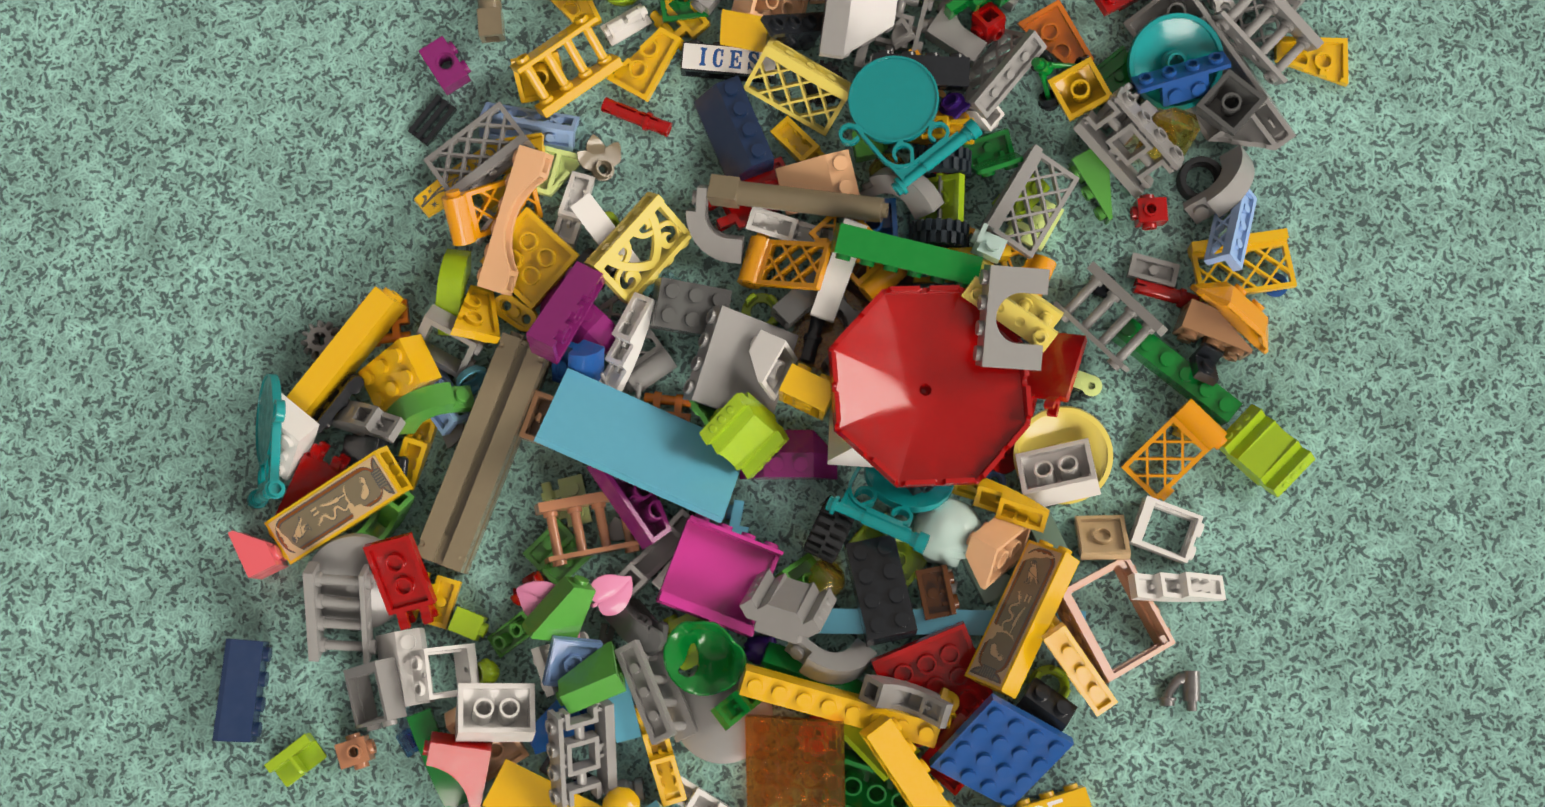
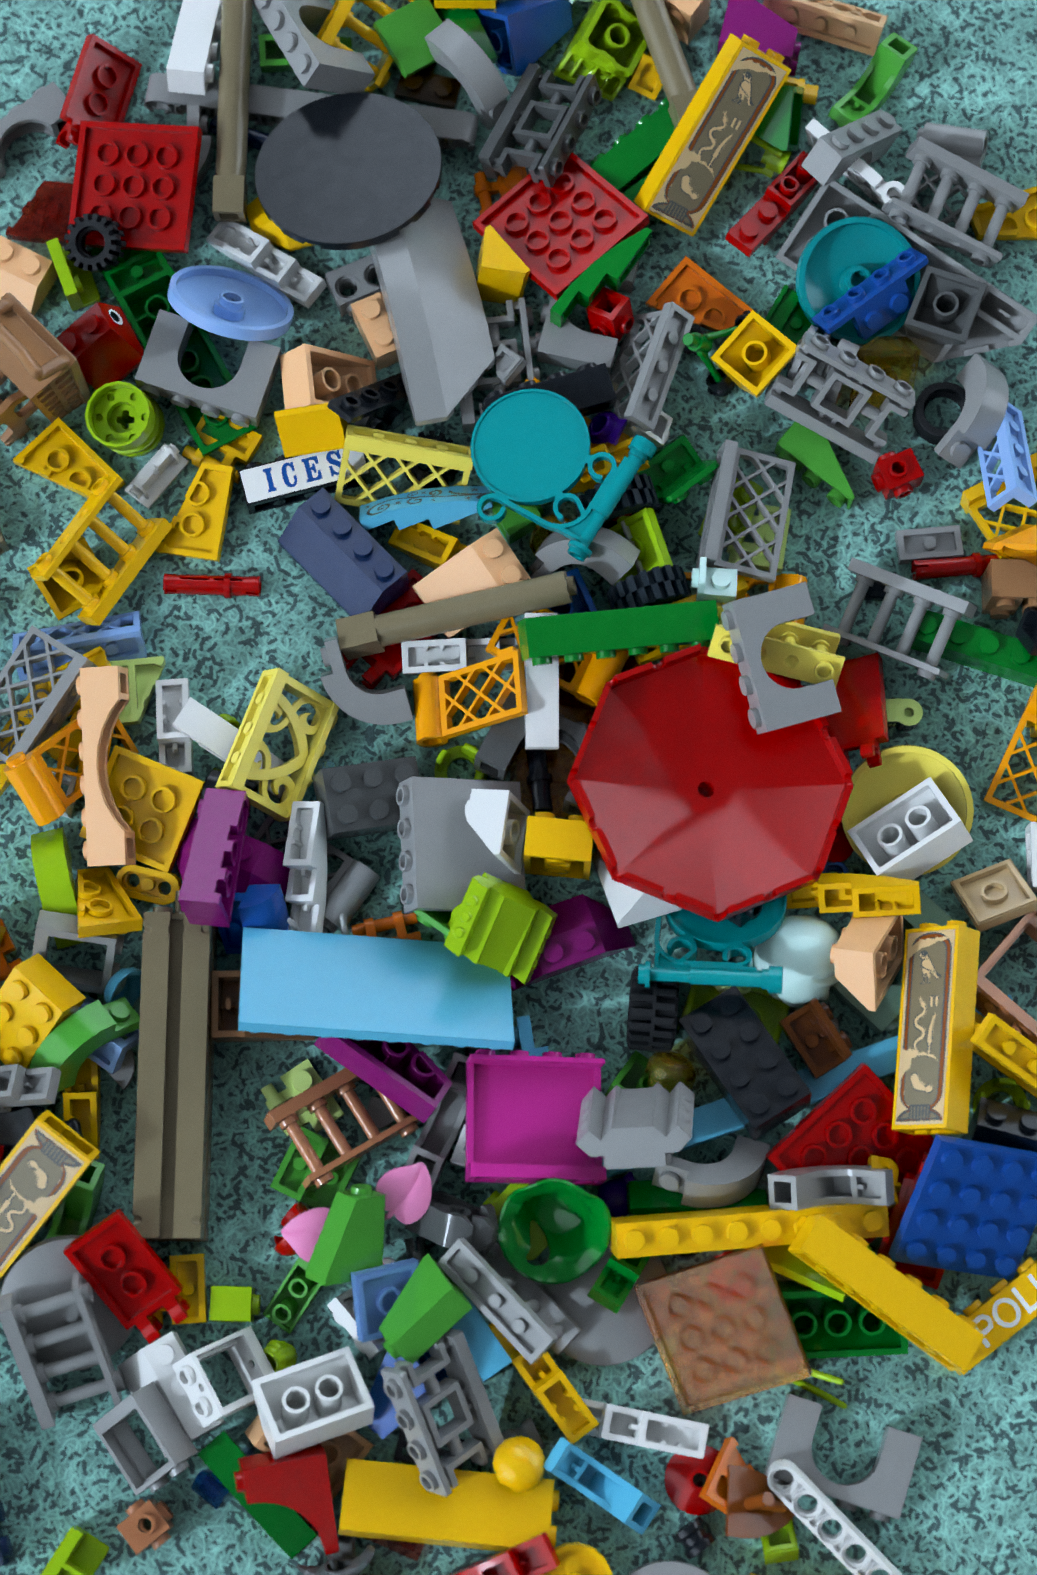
camera: 20 degrees left, 5 degrees down
(599, 155) = (182, 649): dark tan plate -> none
(814, 117) = (438, 505): none -> medium azure slope

